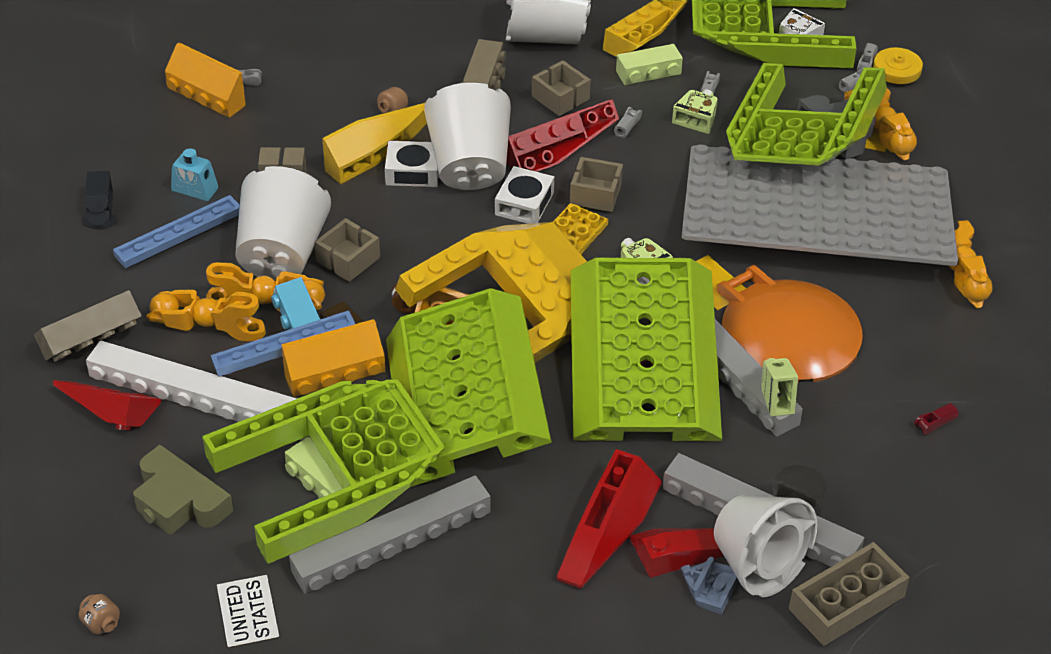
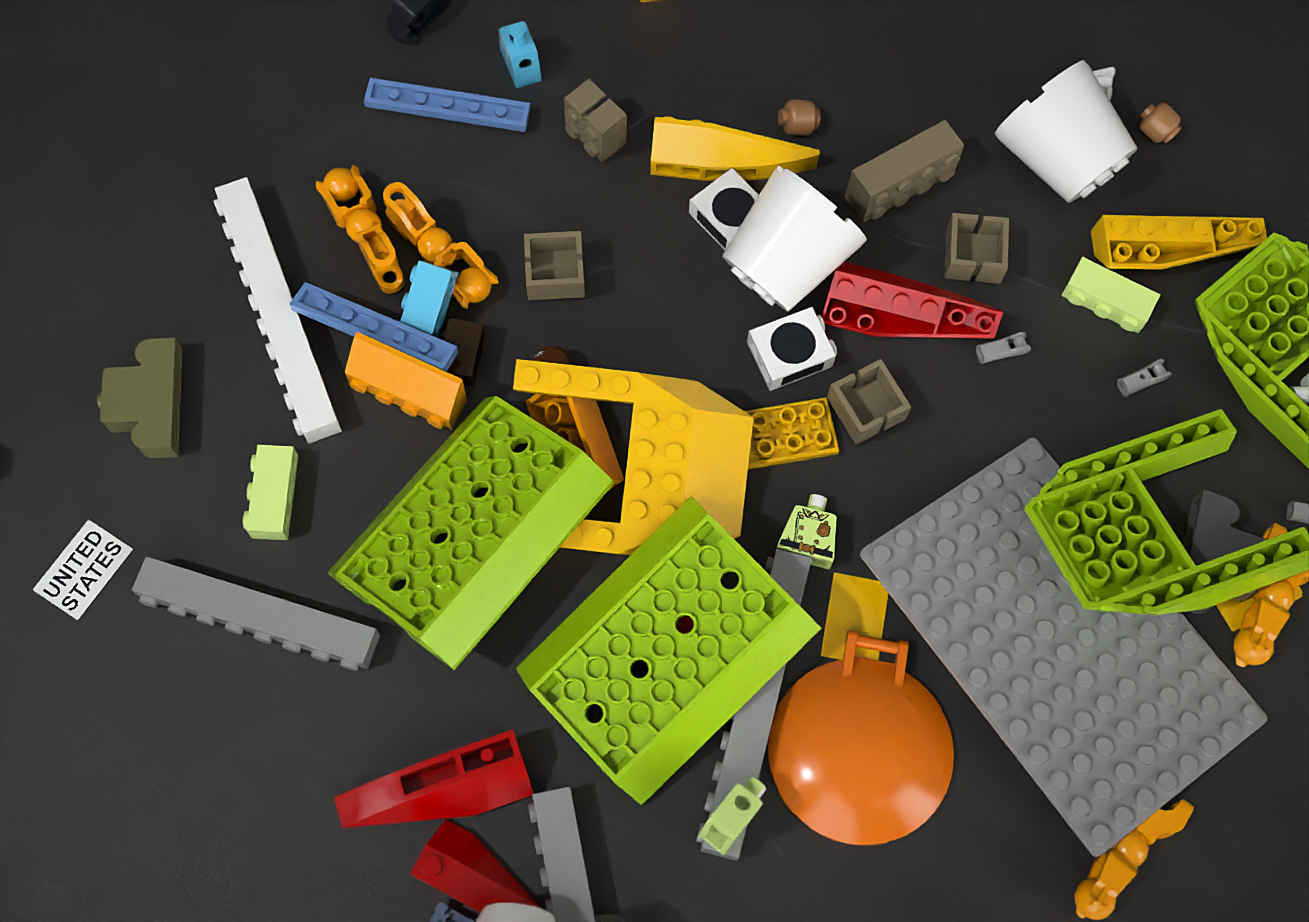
camera: 45 degrees right, 25 degrees up
(89, 324) = (249, 152): dark tan brick -> none
(111, 404) = (195, 251): red wedge -> none
(279, 220) = (507, 187): white cone -> none
(365, 434) = (311, 515): lime wedge -> none
(696, 110) = (1088, 399): yellowish green torso -> none

